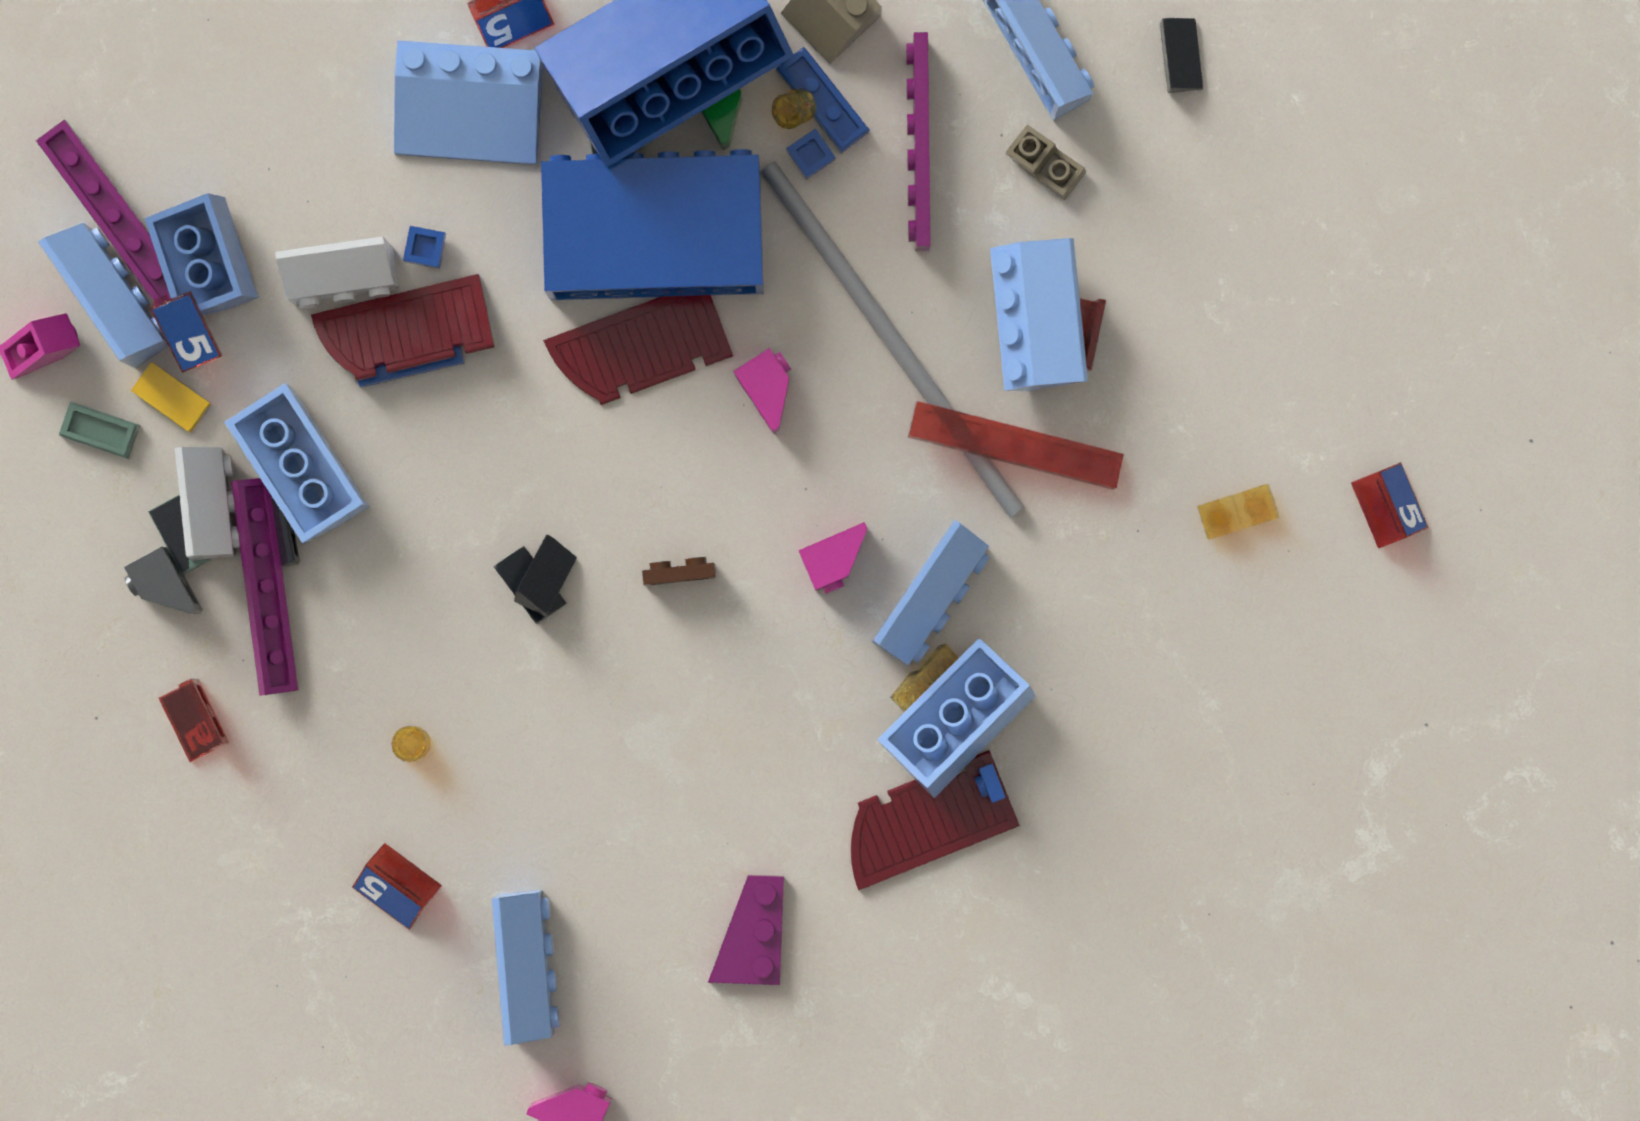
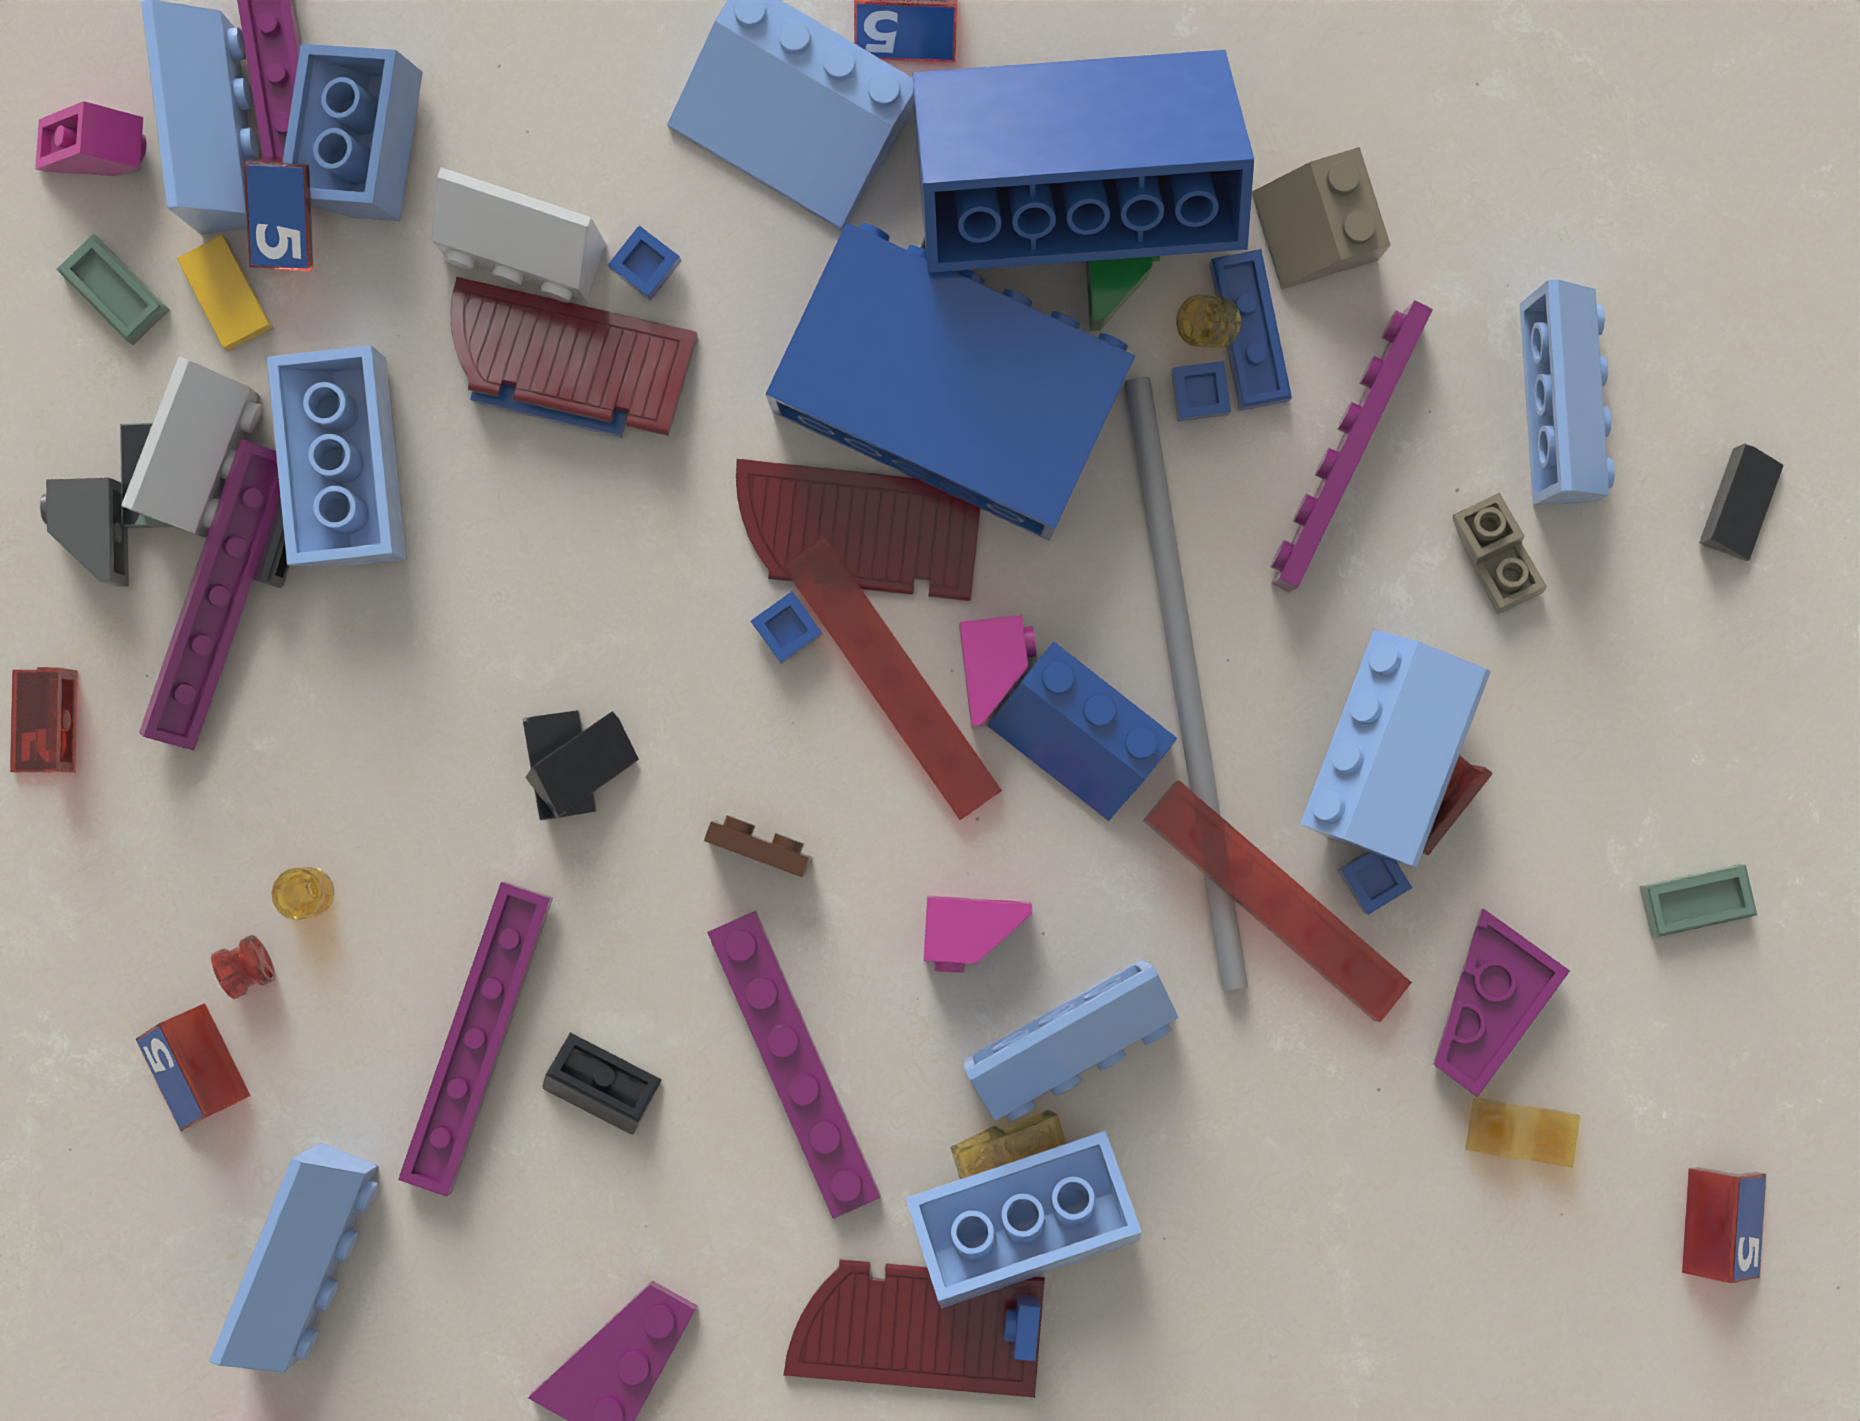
camera: 25 degrees right, 0 degrees up
(397, 807) = (243, 967): none -> clear red wheel
(563, 778) = (475, 1038): none -> magenta plate
(627, 429) = (786, 627): none -> blue plate
(655, 769) = (601, 1083): none -> black slope
(709, 427) = (892, 678): none -> clear red tile
(768, 696) = (794, 1064): none -> magenta plate
(842, 401) = (1082, 731): none -> blue slope
(1069, 402) = (1374, 880): none -> blue plate
(1181, 440) = (1494, 1002): none -> magenta wing
(1276, 315) = (1698, 900): none -> sand green tile

